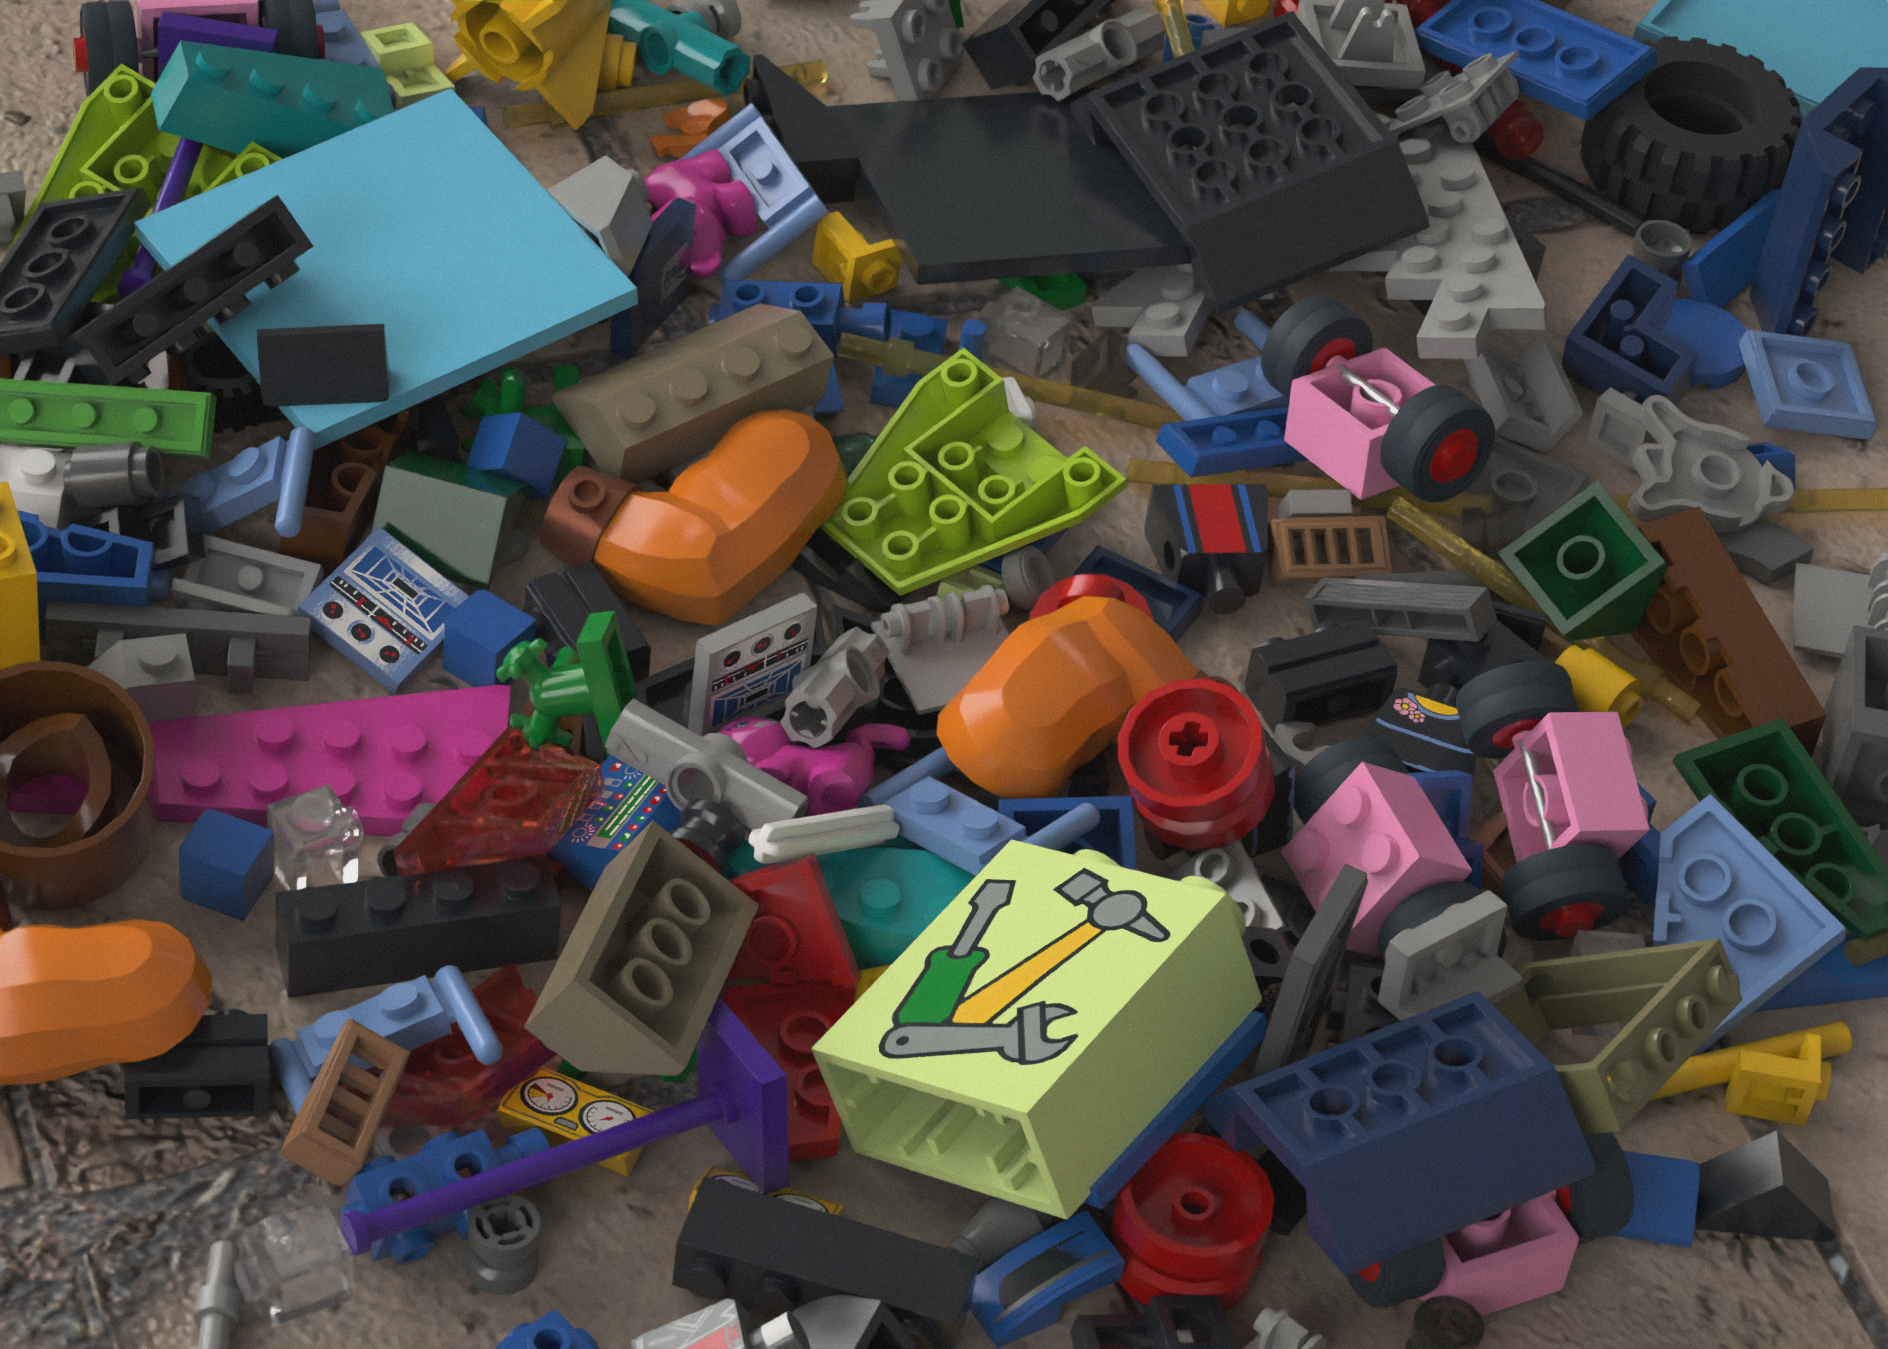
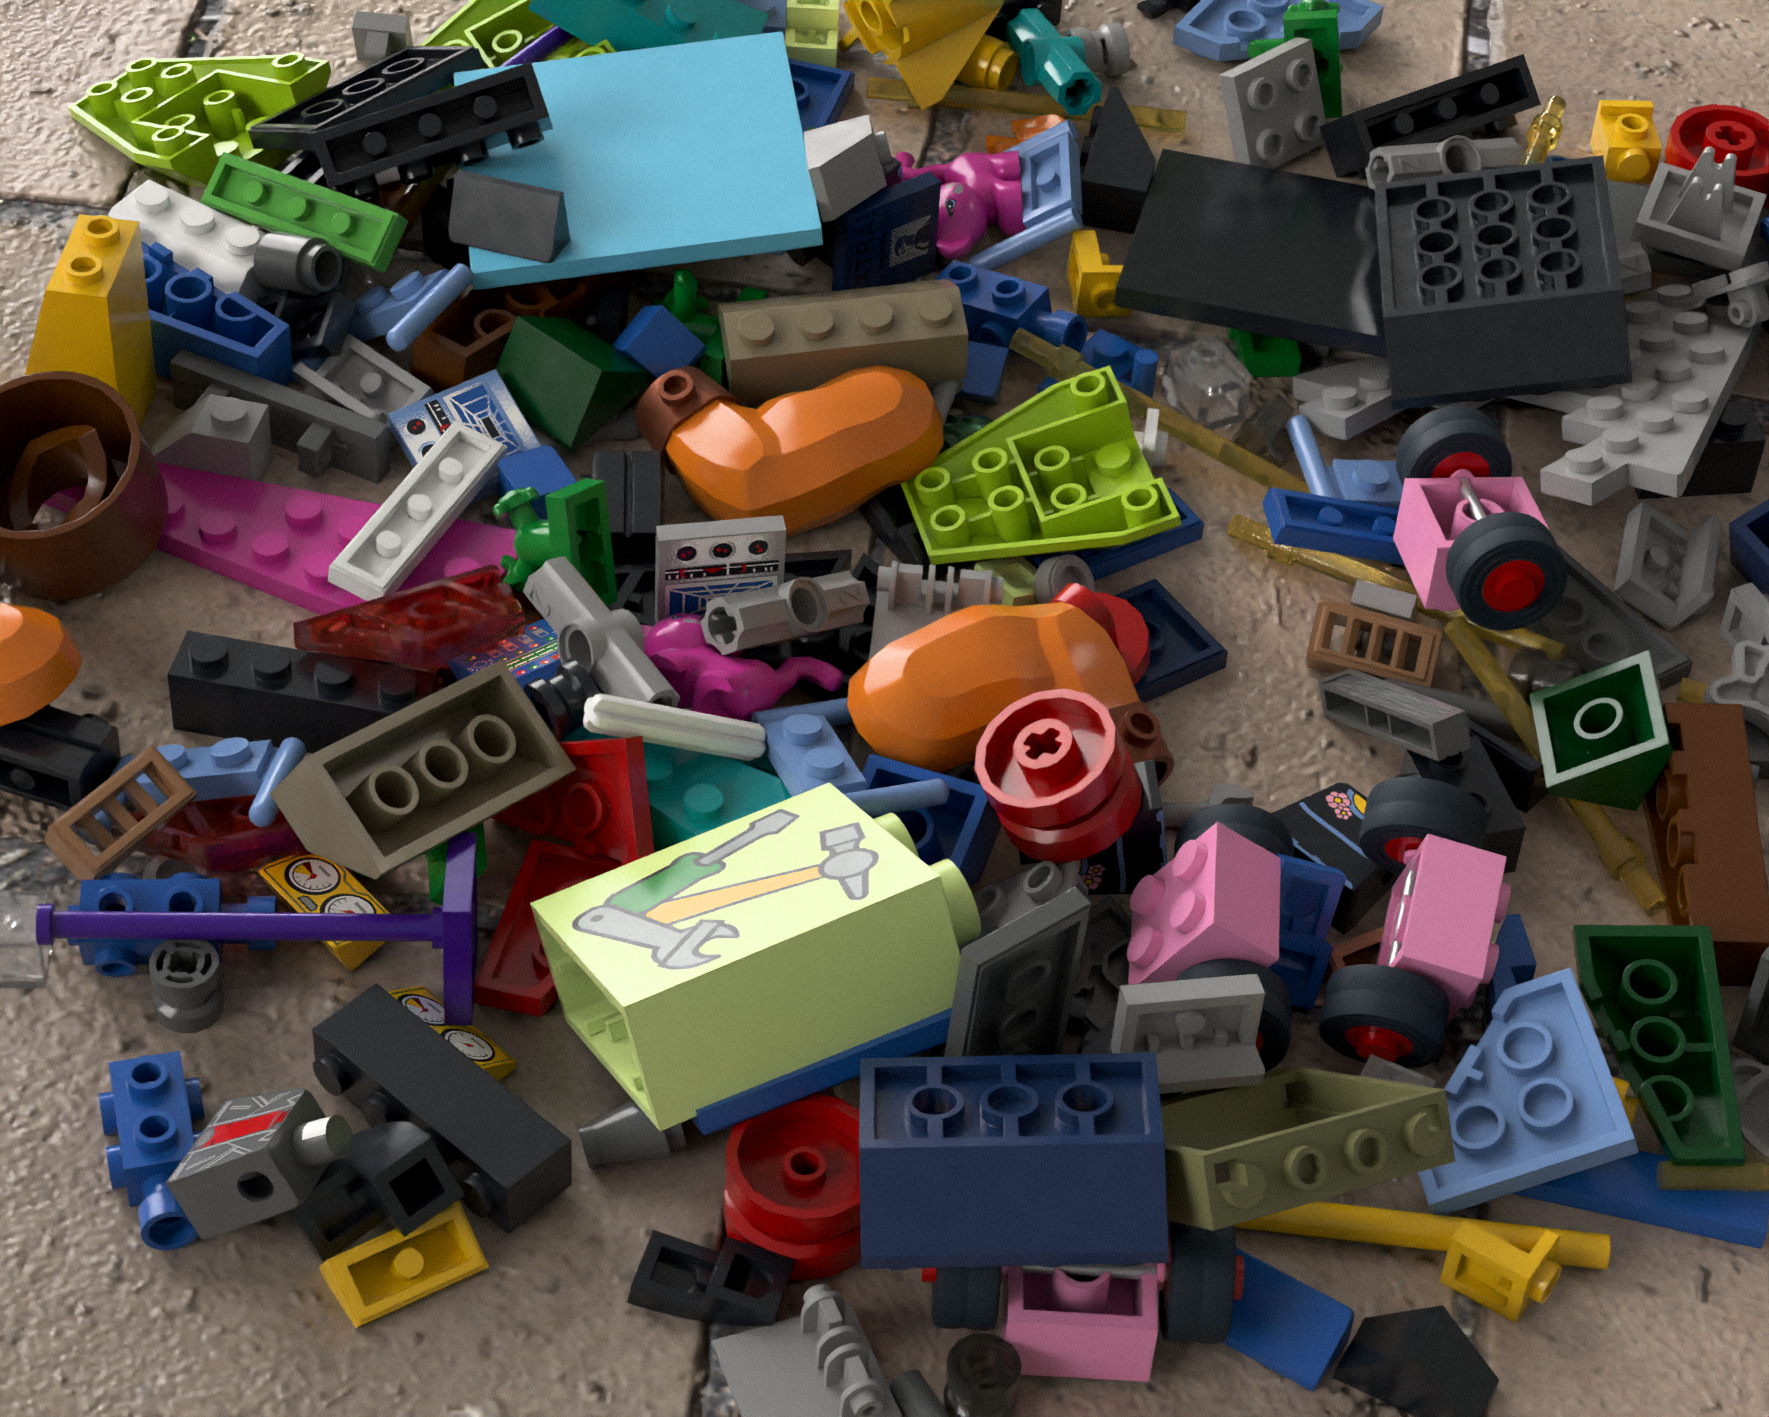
camera: 30 degrees right, 0 degrees up
(225, 863) = (186, 596): blue piece -> none
(315, 839) = (268, 600): clear brick -> none
(400, 700) = (417, 513): none -> white tile
(1036, 1278) = (651, 1180): blue slope -> none
(1210, 539) = (1266, 605): black torso -> none
(1321, 675) = (1285, 750): black brick -> none
(1601, 684) = (1560, 849): yellow brick -> none

